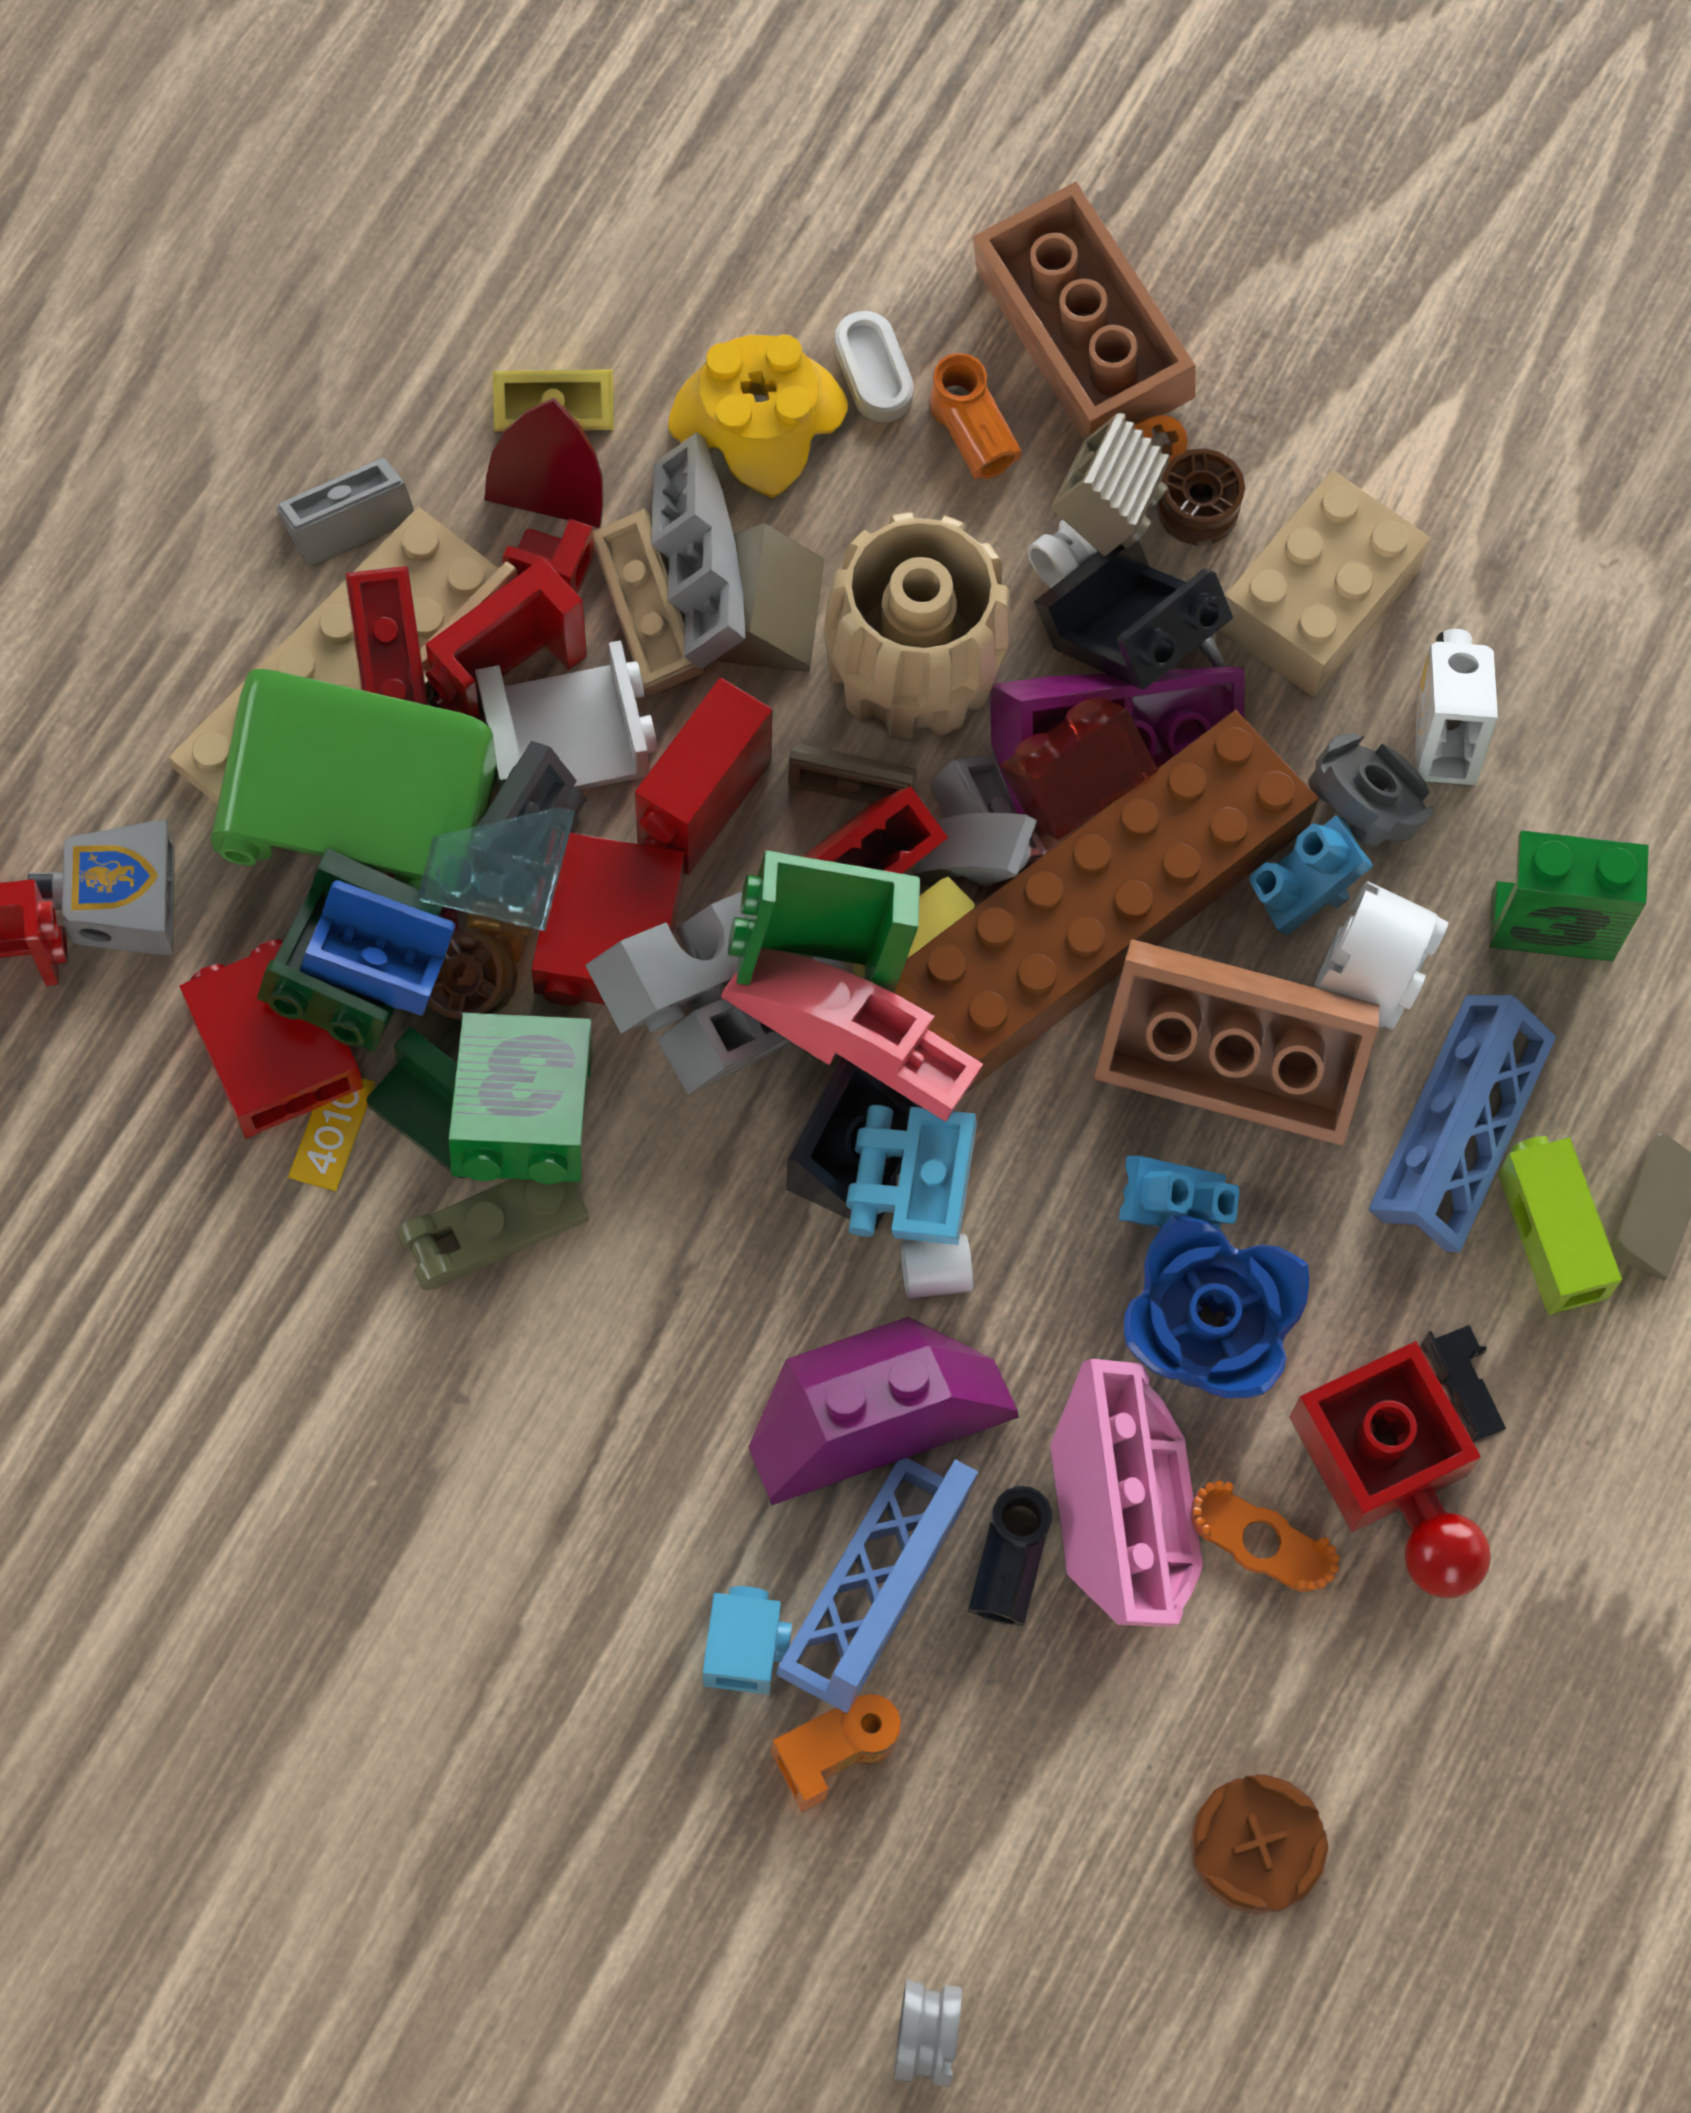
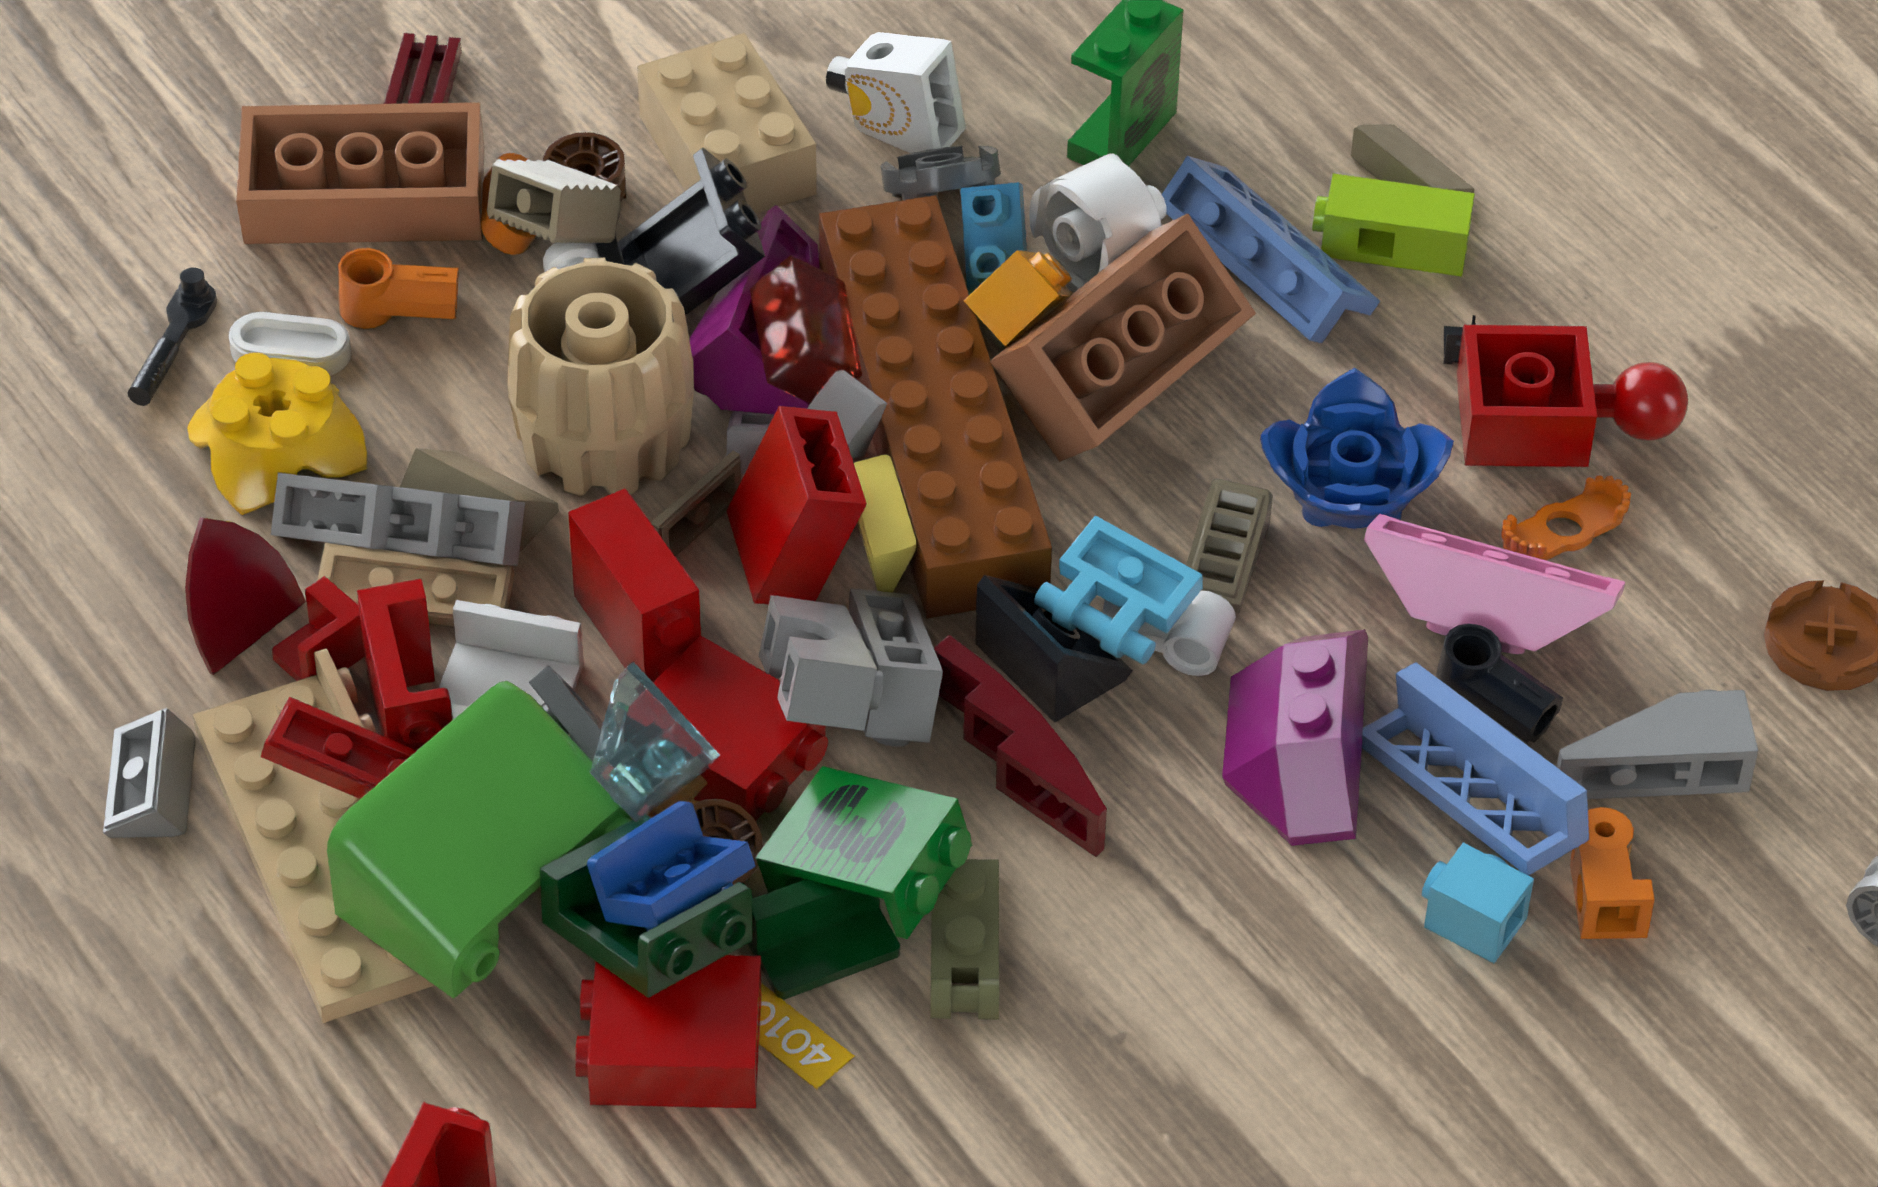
camera: 60 degrees left, 20 degrees down
(117, 888) = (444, 1070): light grey torso -> none
(583, 393) = (146, 581): light yellow slope -> none
(712, 1186) = (1029, 755): none -> dark red slope
(827, 914) = (869, 501): green panel -> none
(860, 1021) = (950, 557): coral slope -> none
(866, 270) = (186, 310): none -> black piece
(1021, 1748) = (1673, 748): none -> light grey slope
(1077, 1219) = (1236, 510): none -> dark tan slope
(1167, 1189) = (1232, 442): dark azure hips -> none
(1225, 930) = (1020, 294): none -> light orange piece
(1242, 299) = (427, 53): none -> dark red tile

